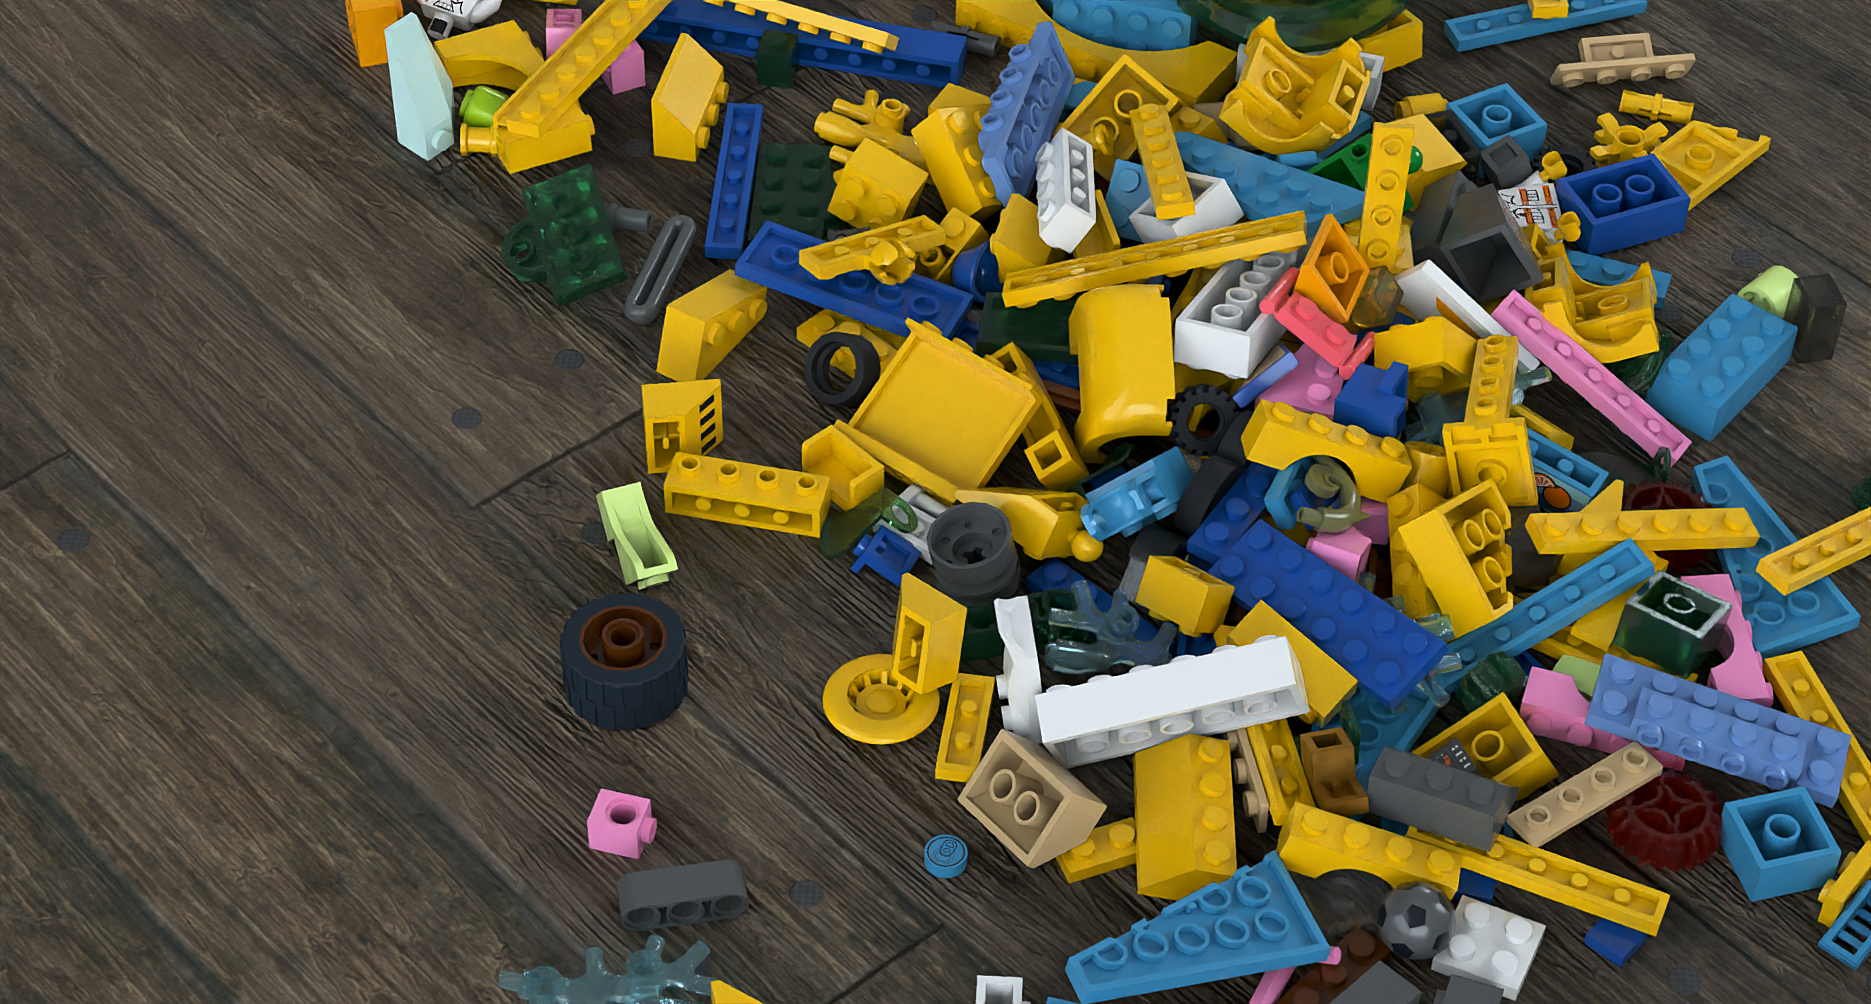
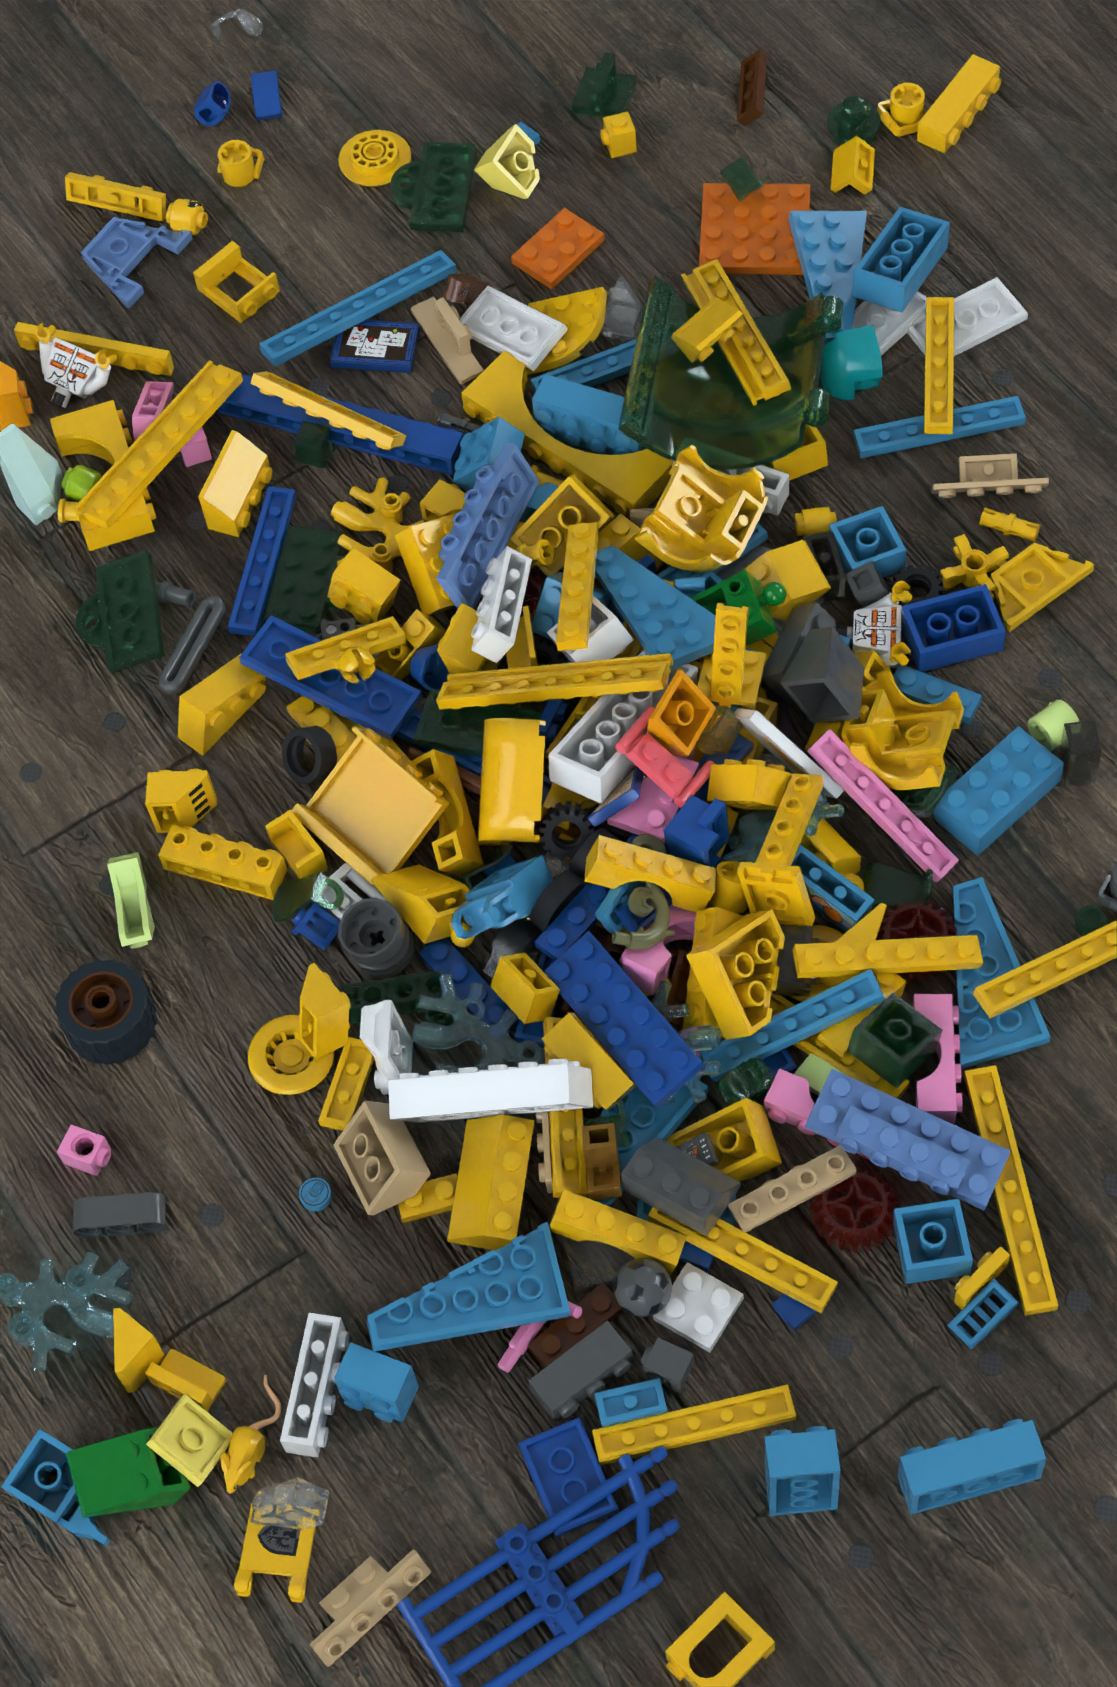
camera: 15 degrees right, 15 degrees up
(990, 48) = (482, 449): none -> dark azure brick

